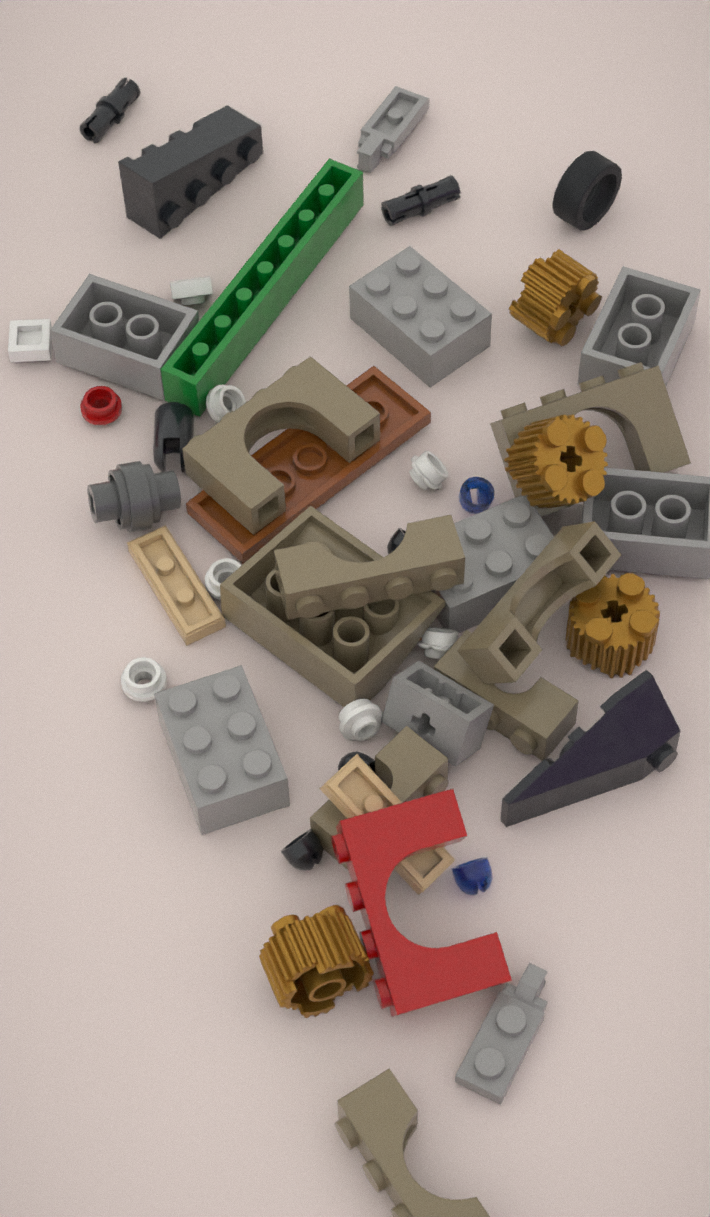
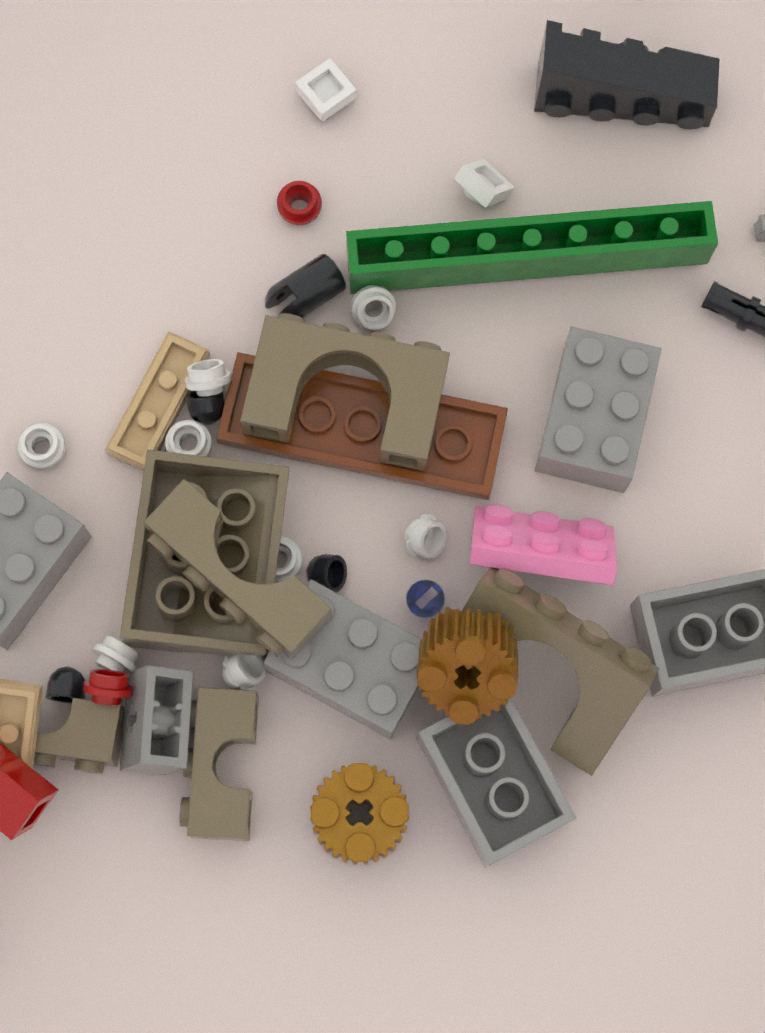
camera: 50 degrees right, 20 degrees up
(120, 334) = (378, 162): light grey brick -> none
(134, 496) = (209, 304): dark grey piece -> none
(190, 530) = (207, 377): none -> white plate
(208, 549) = (205, 408): none -> black hinge
(385, 724) = (108, 686): none -> red plate
(473, 875) = (29, 851): clear blue hinge -> none
(489, 397) = (543, 544): none -> bright pink plate
(508, 635) = (247, 739): dark tan arch -> none
(556, 297) = (704, 524): pearl gold brick -> none
(618, 750) = (226, 901): black wedge -> none

